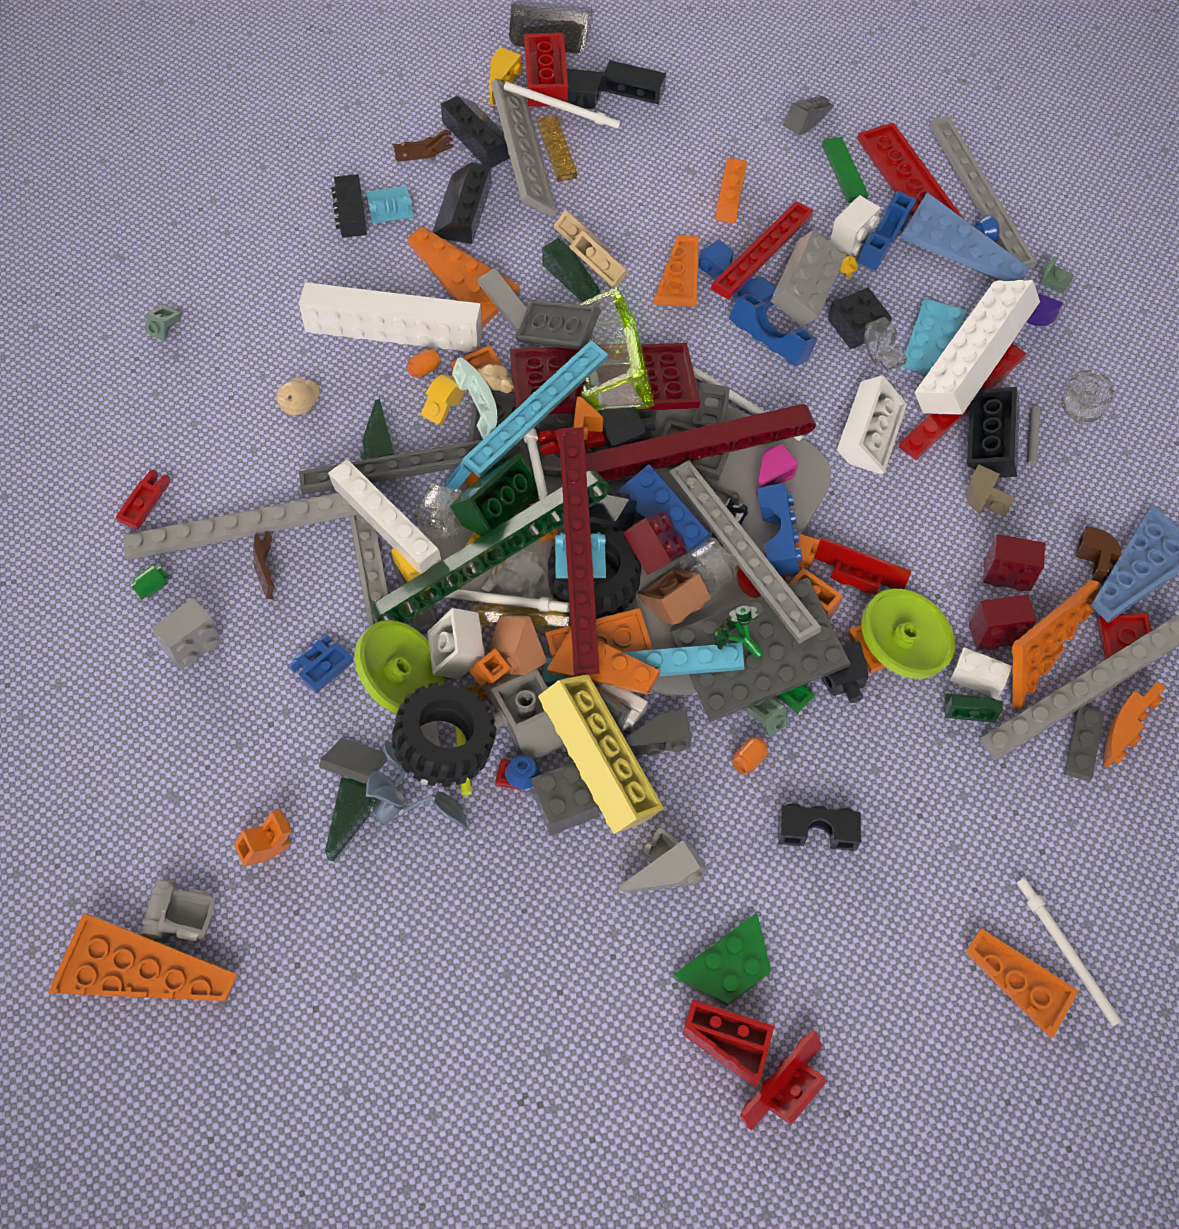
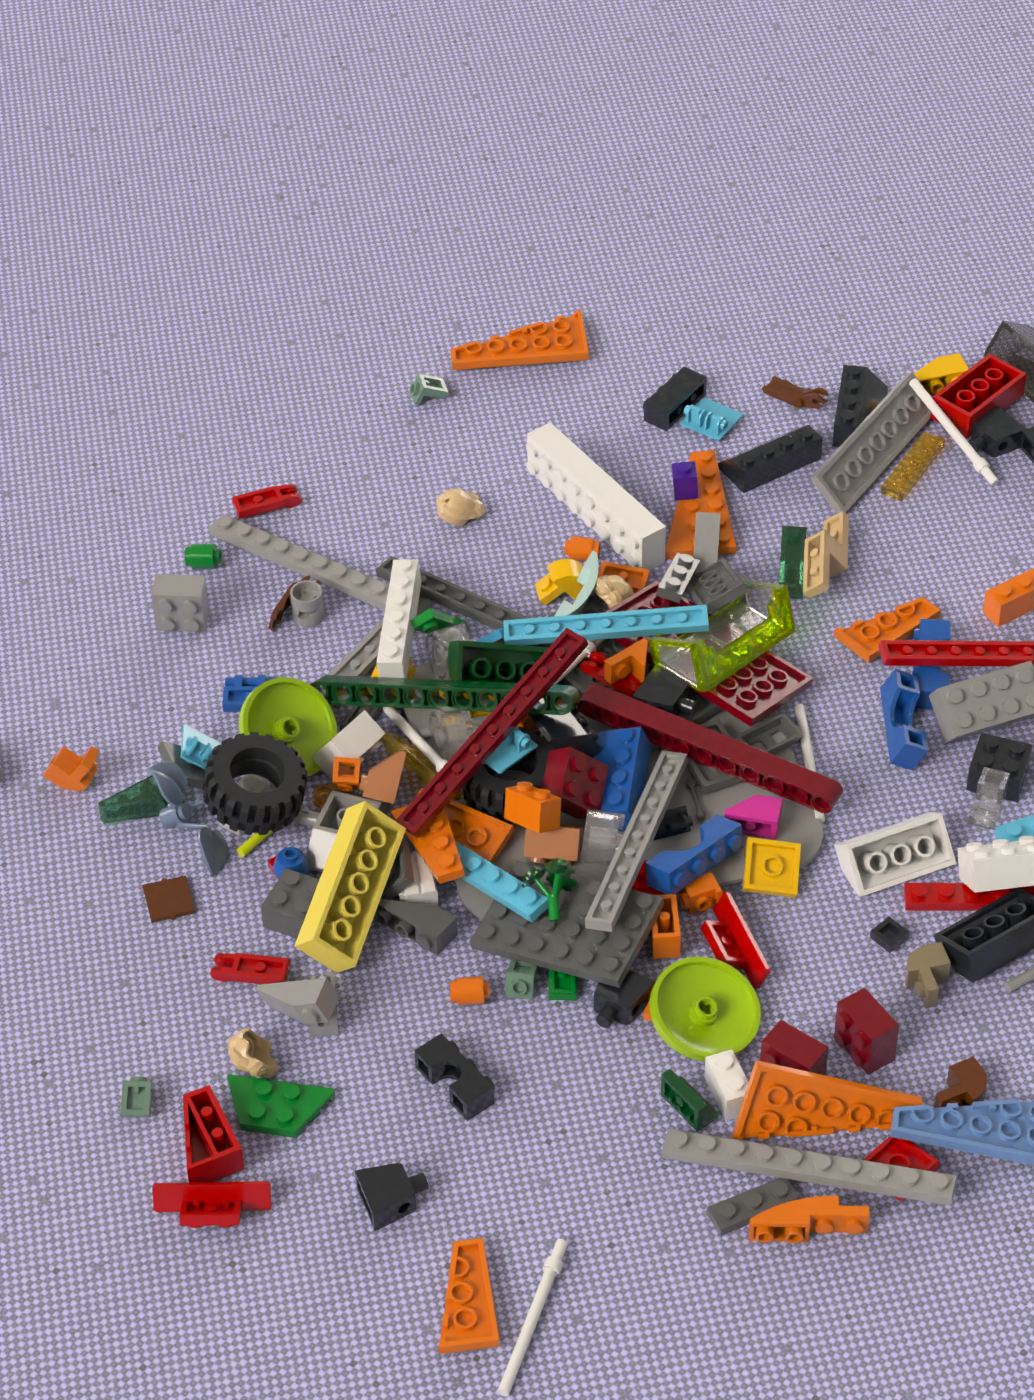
camera: 50 degrees right, 15 degrees down
(196, 234) = (532, 344): none -> orange wing
(281, 557) = (307, 603): none -> light grey wheel
(353, 738) = (196, 747): none -> medium azure hinge
(376, 437) = (483, 572): clear green slope -> none
(411, 499) = (434, 620): none -> green plate
(437, 261) = (685, 480): none -> dark purple brick
(458, 877) = (168, 899): none -> reddish brown piece
(521, 336) = (678, 577): none -> plate
(590, 876) = (250, 968): none -> red hinge
(636, 1056) = (136, 1097): none -> sand green bracket
(659, 584) = (532, 807): none -> orange brick
(676, 945) = (252, 1054): none -> tan hair
(822, 498) = (771, 867): none -> yellow plate
(886, 956) = (388, 1192): none -> black torso
(934, 484) = (889, 934): none -> black plate

